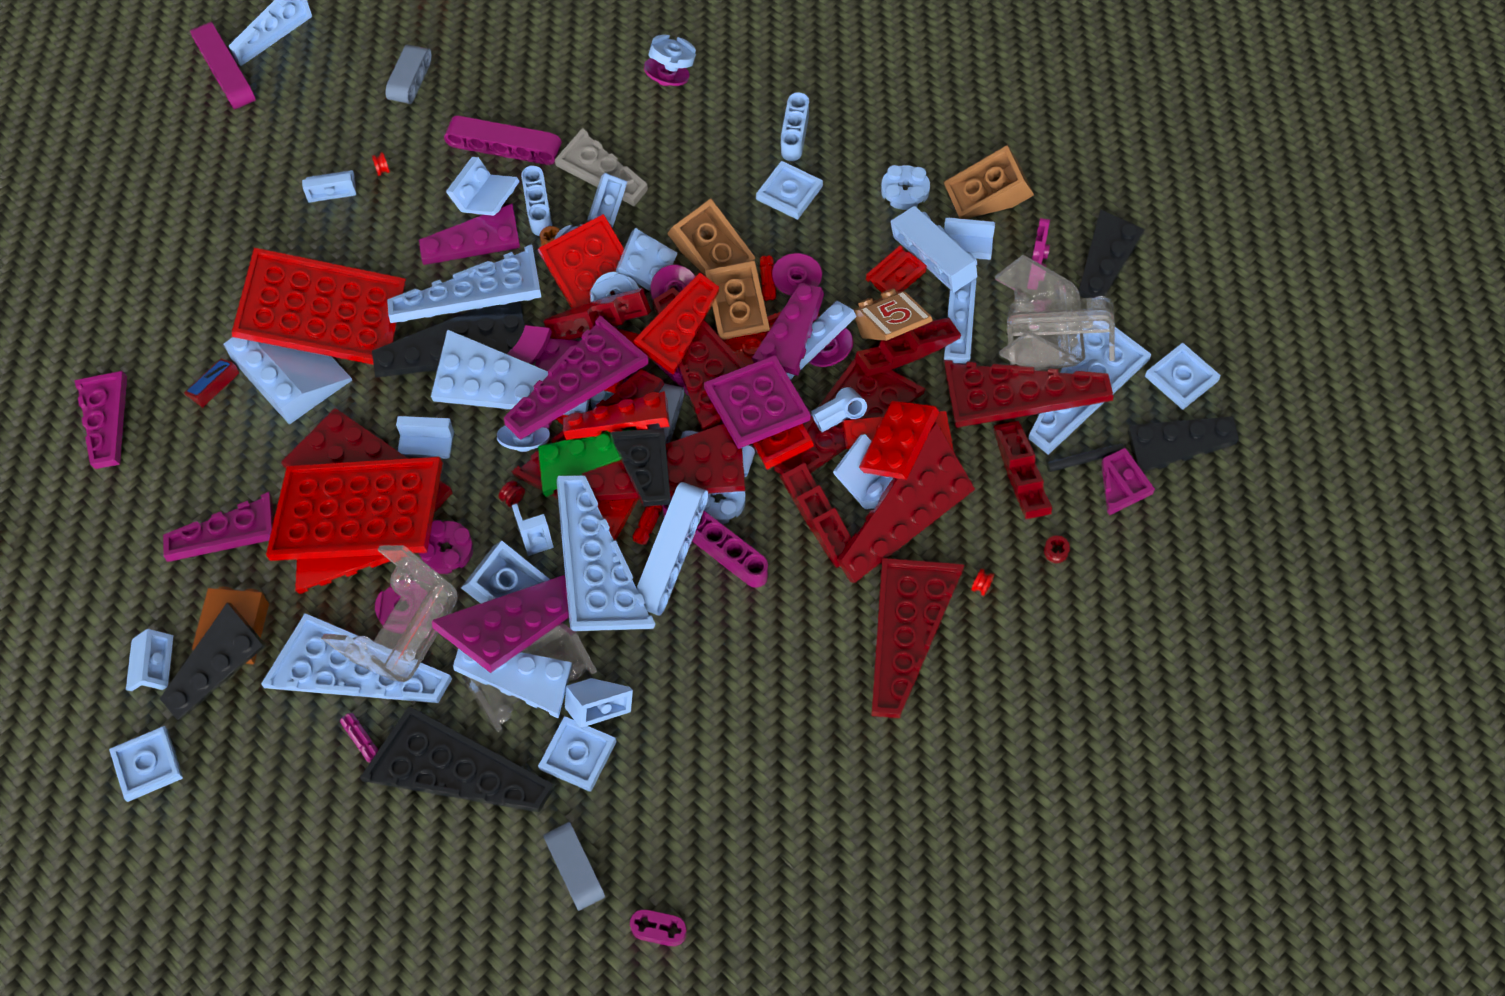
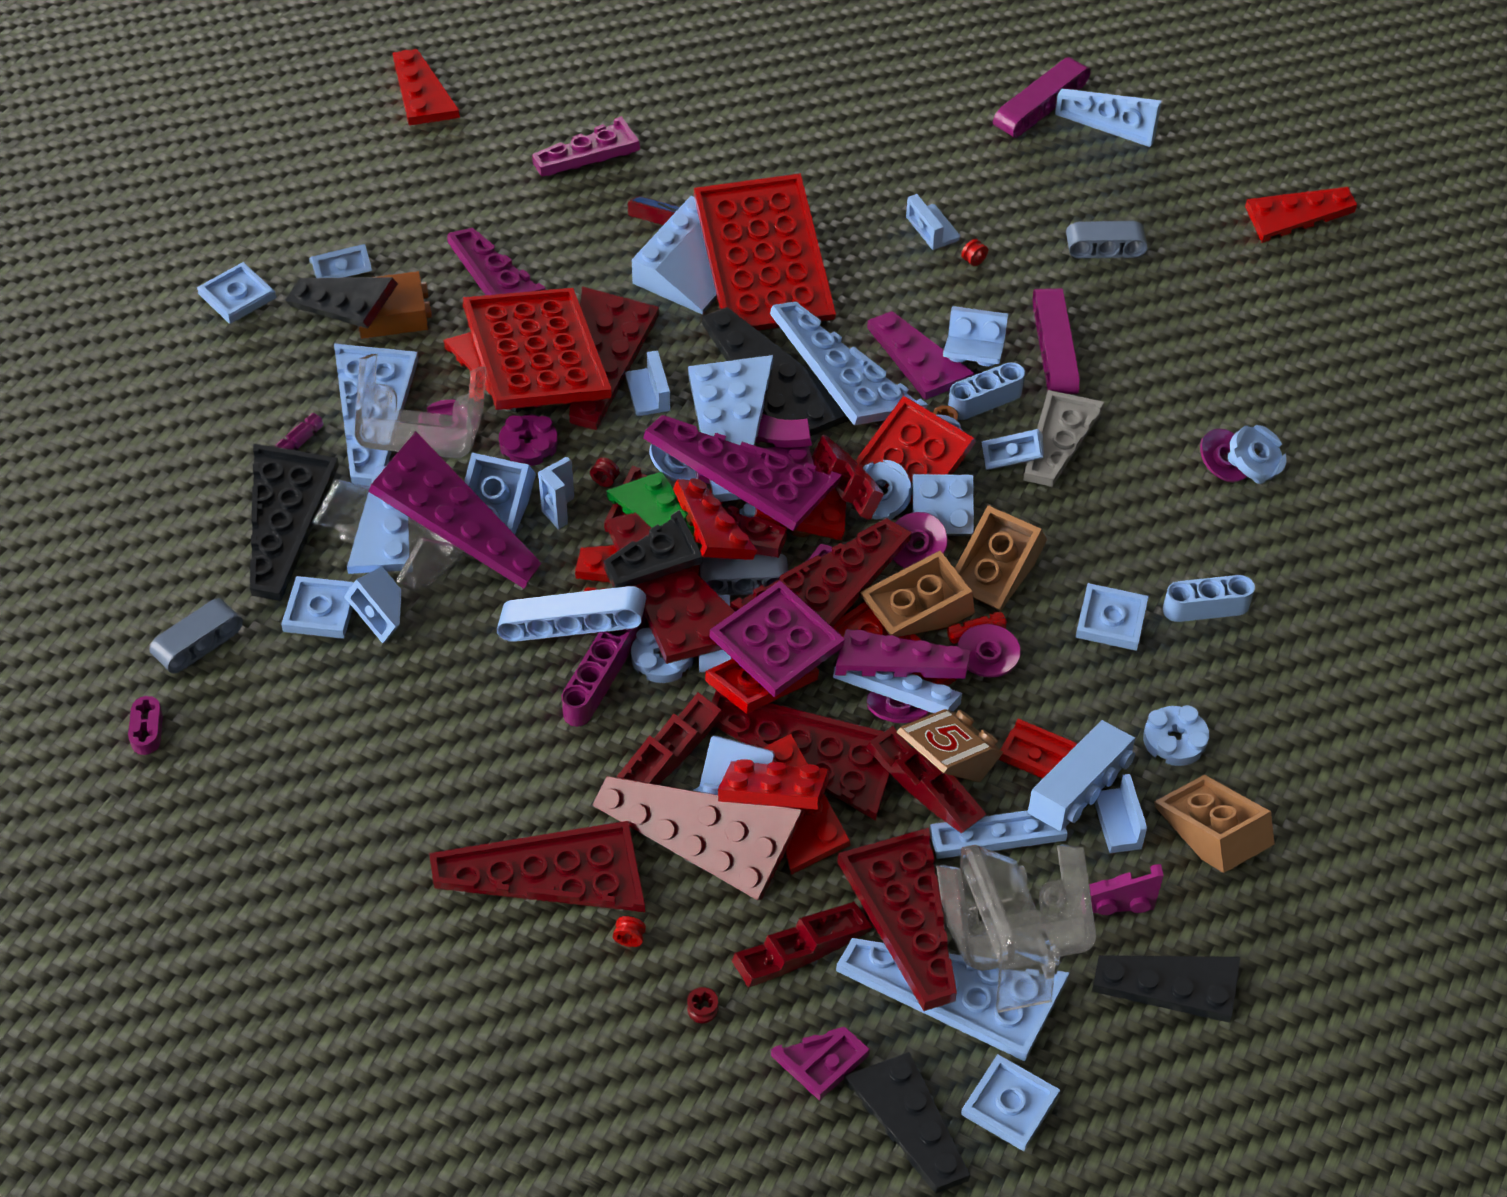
camera: 70 degrees right, 10 degrees down
(595, 571) = (514, 555): light blue wing -> none
(675, 327) = (854, 542): red wing -> none
(838, 409) = (806, 728): light blue piece -> none
(1083, 457) = (846, 1013): black bar -> none

